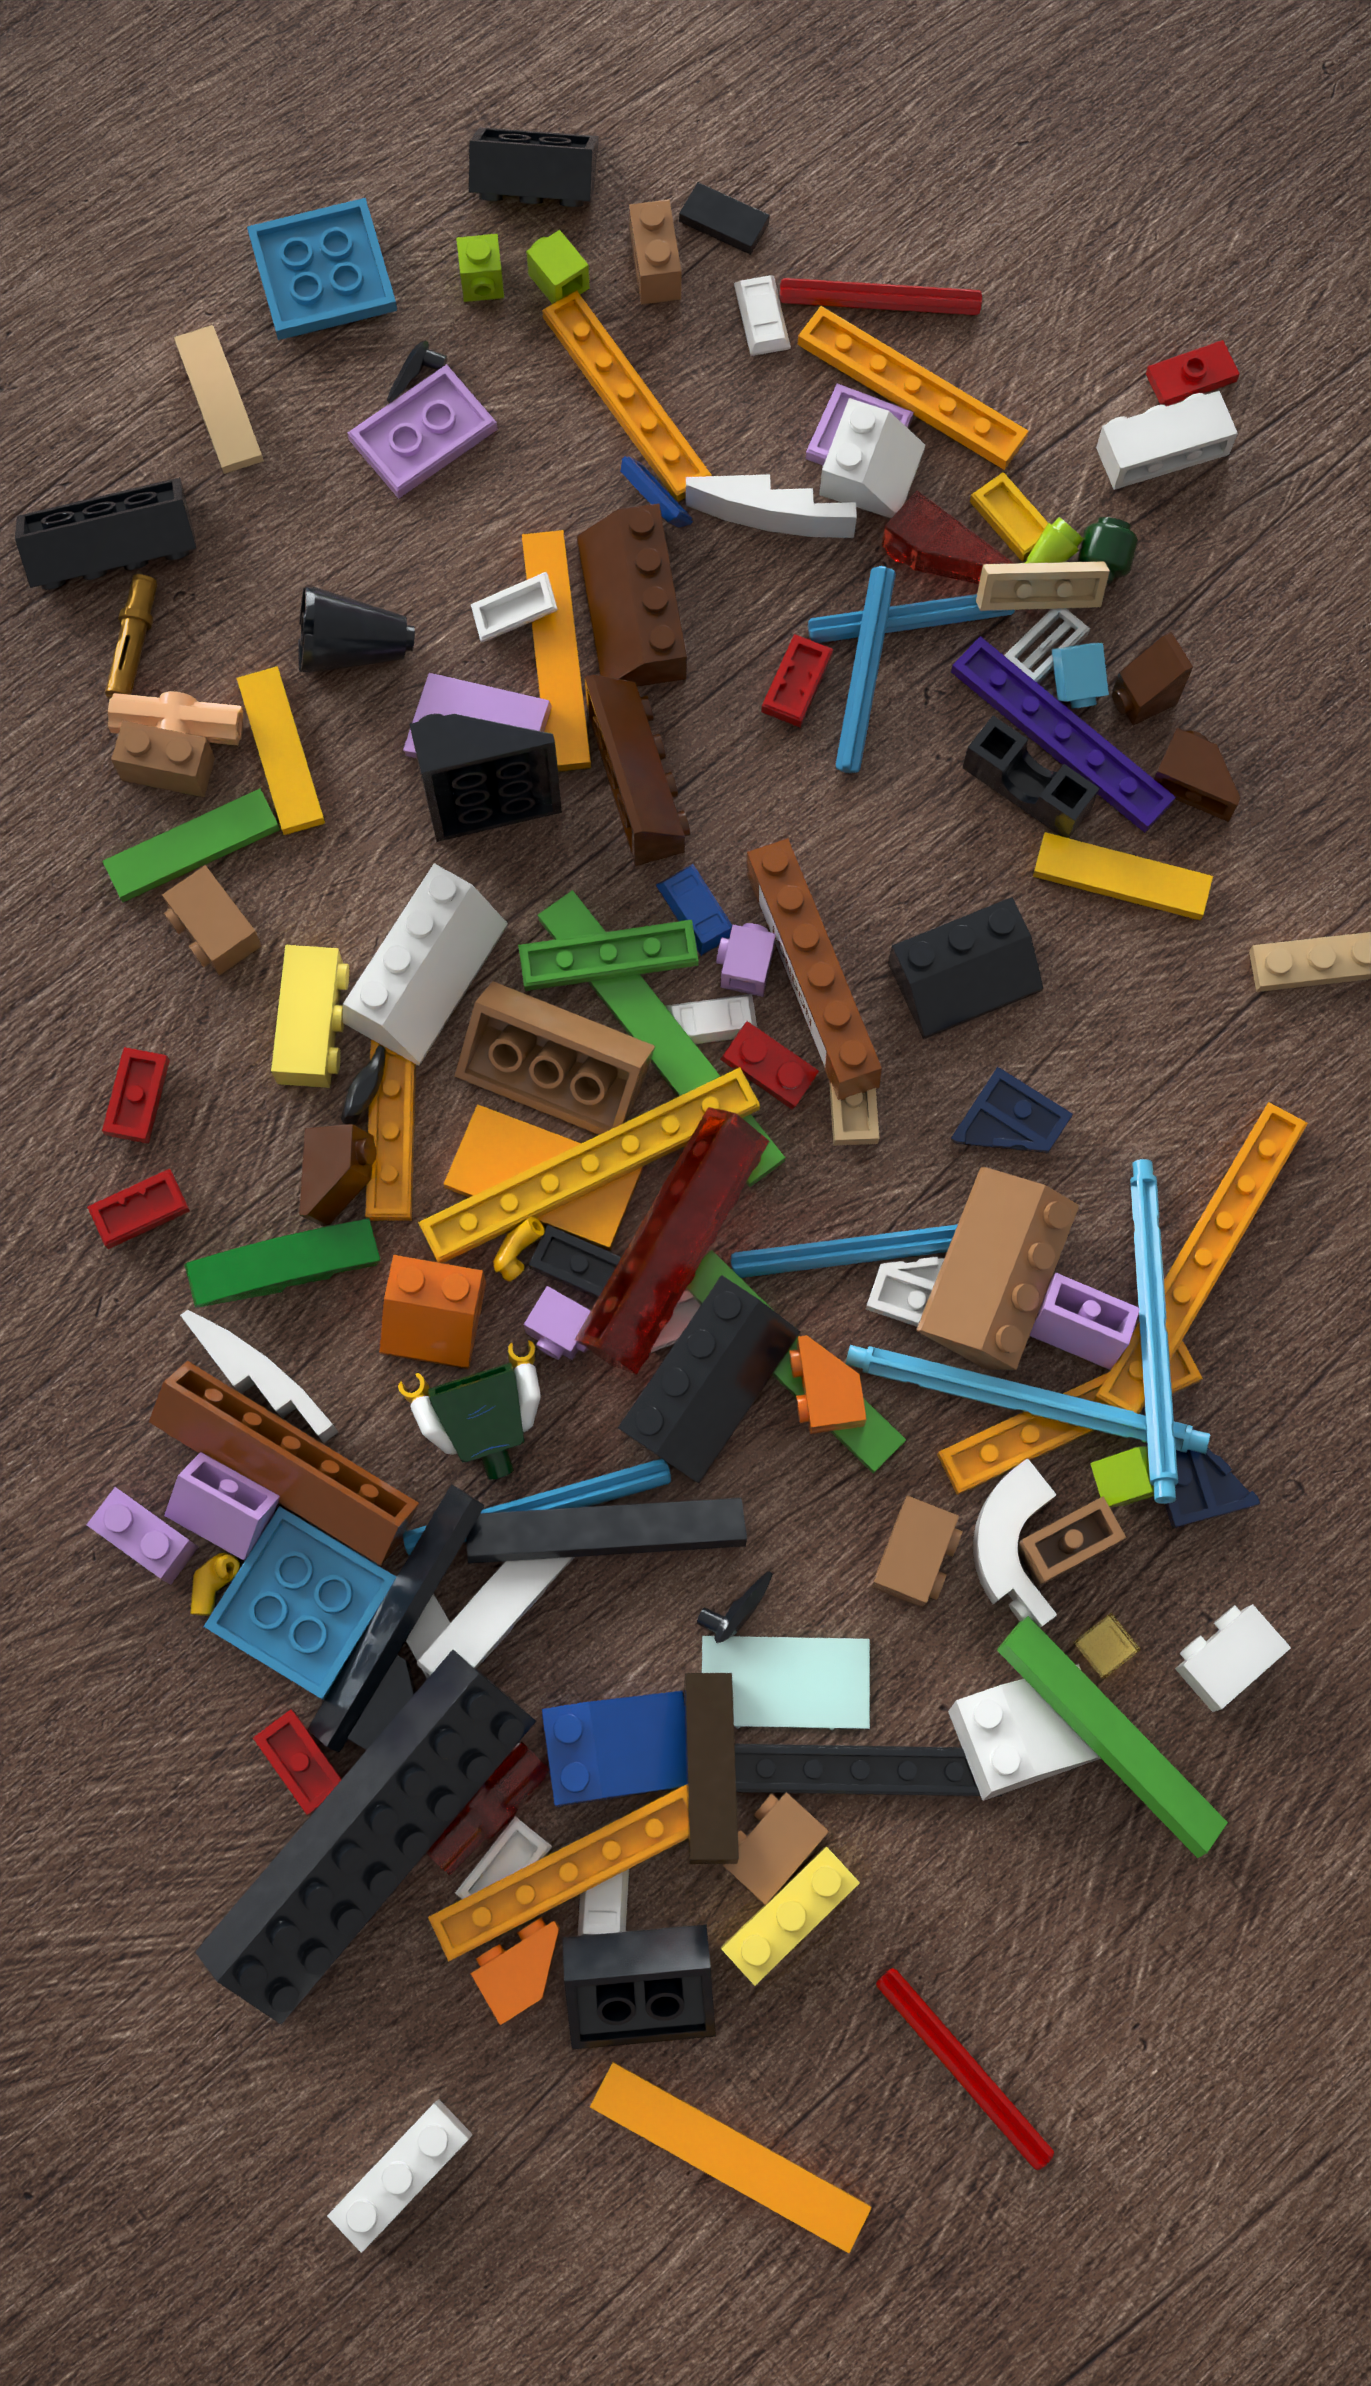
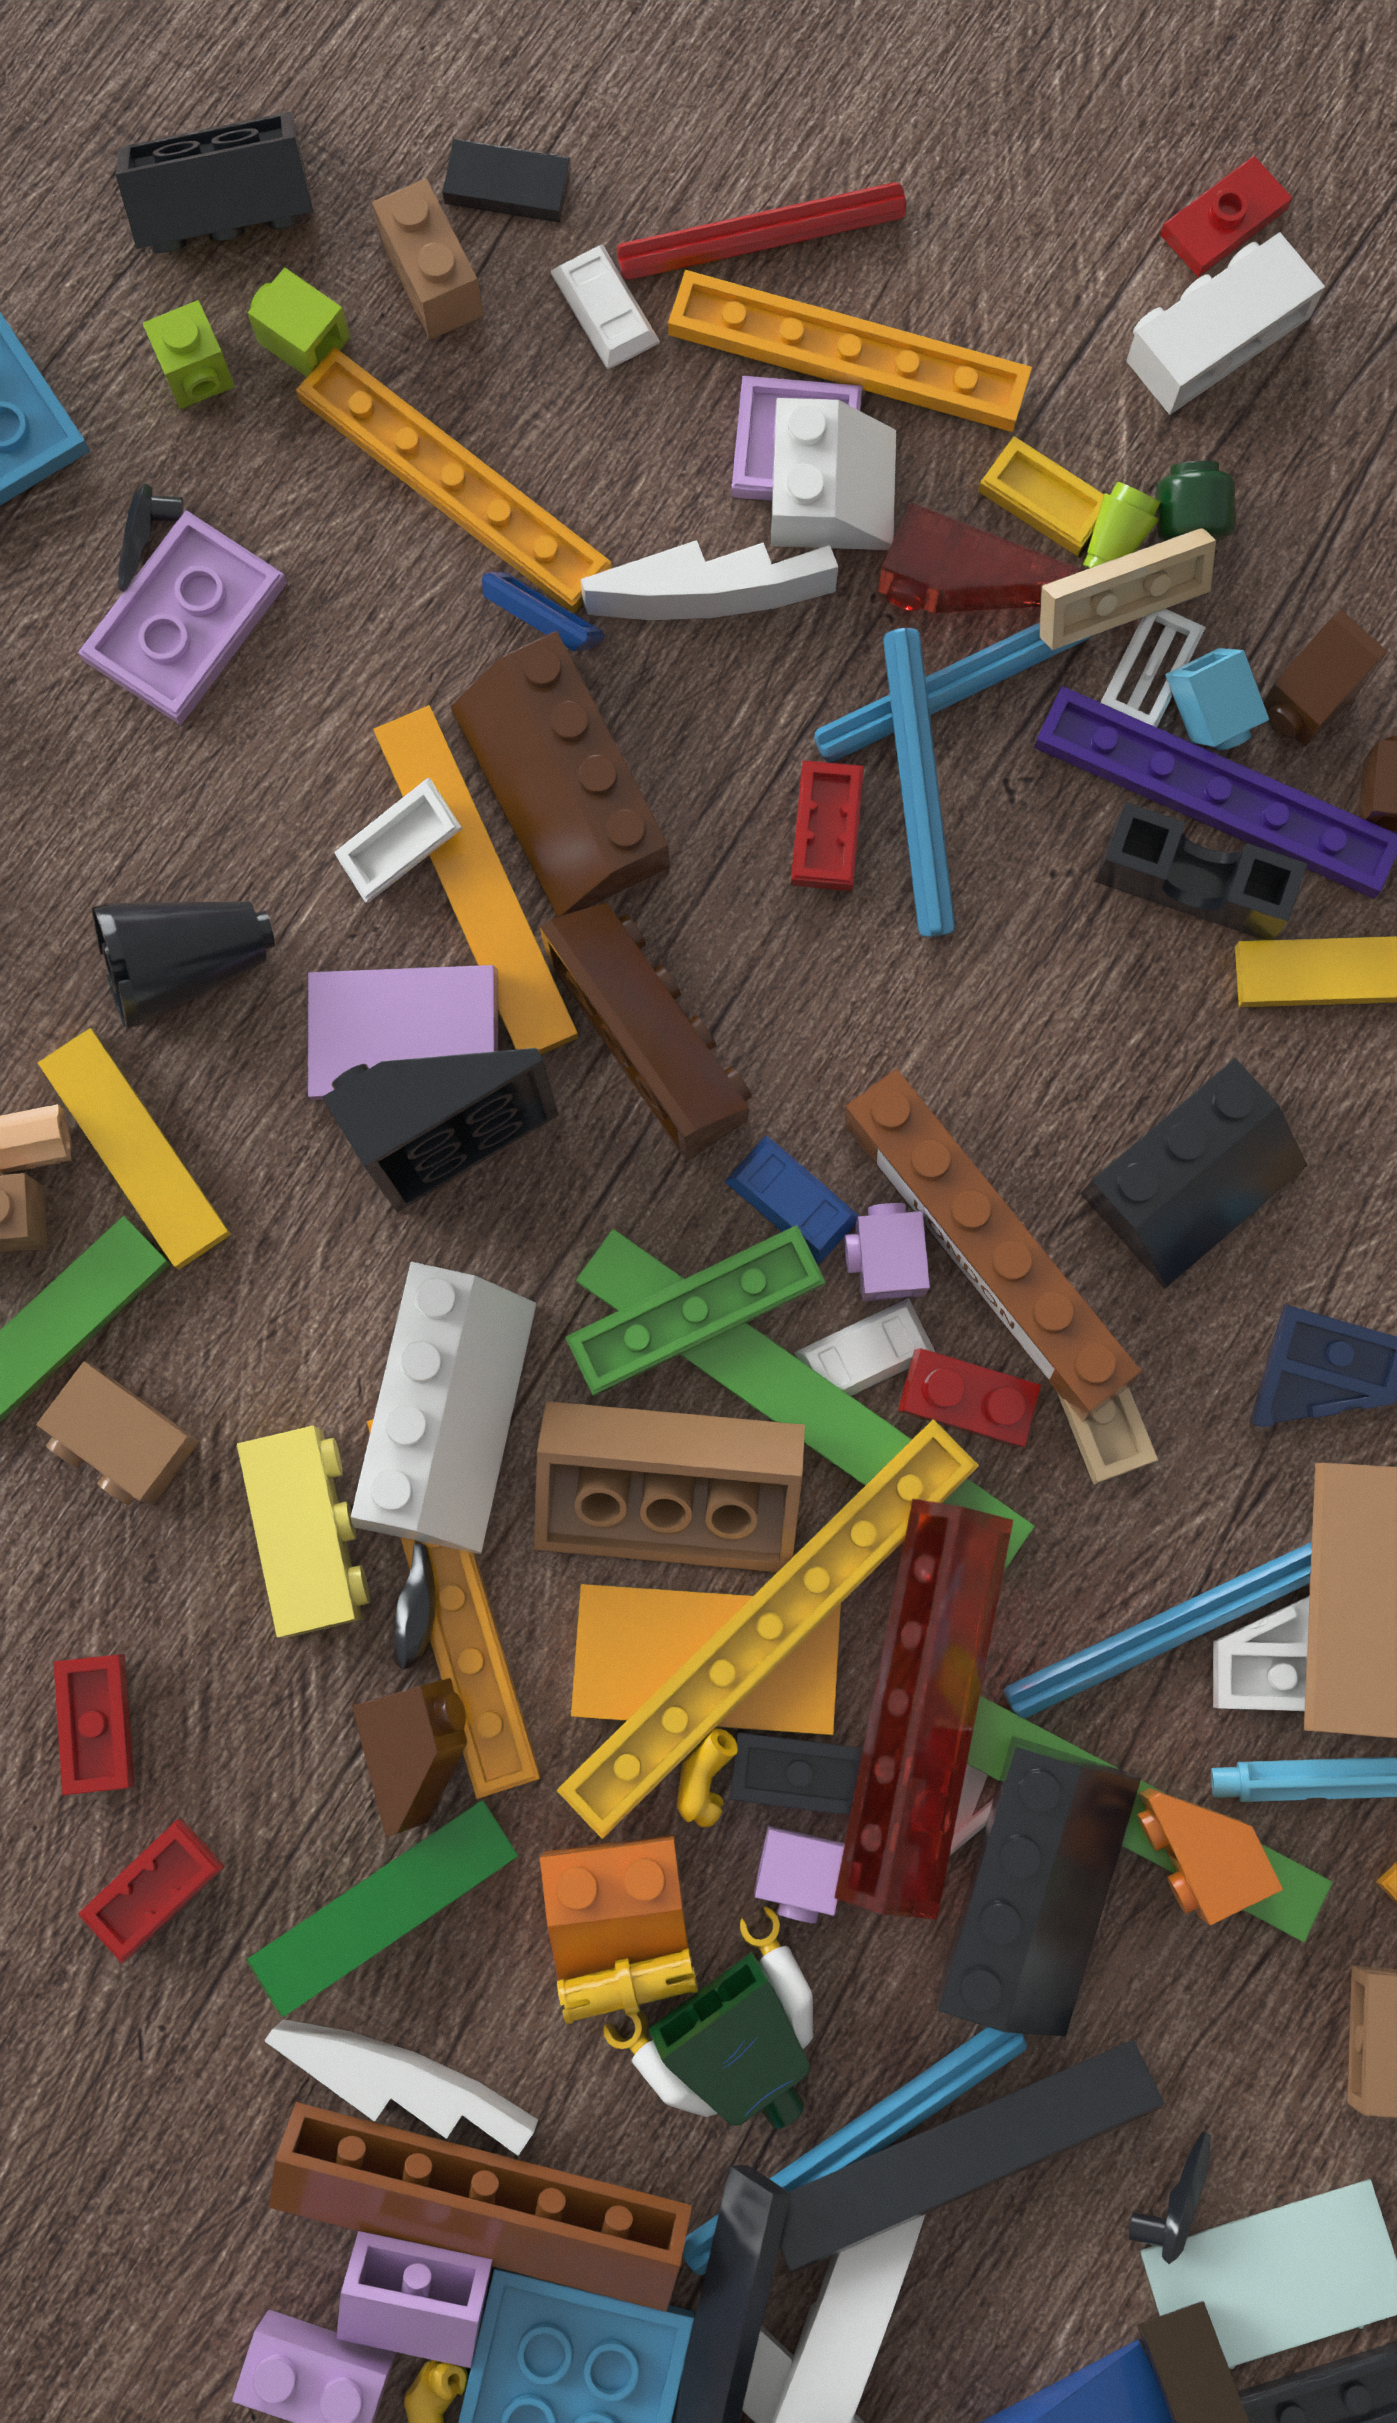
camera: 15 degrees left, 5 degrees up
(423, 1357) = (627, 1986): none -> yellow pin

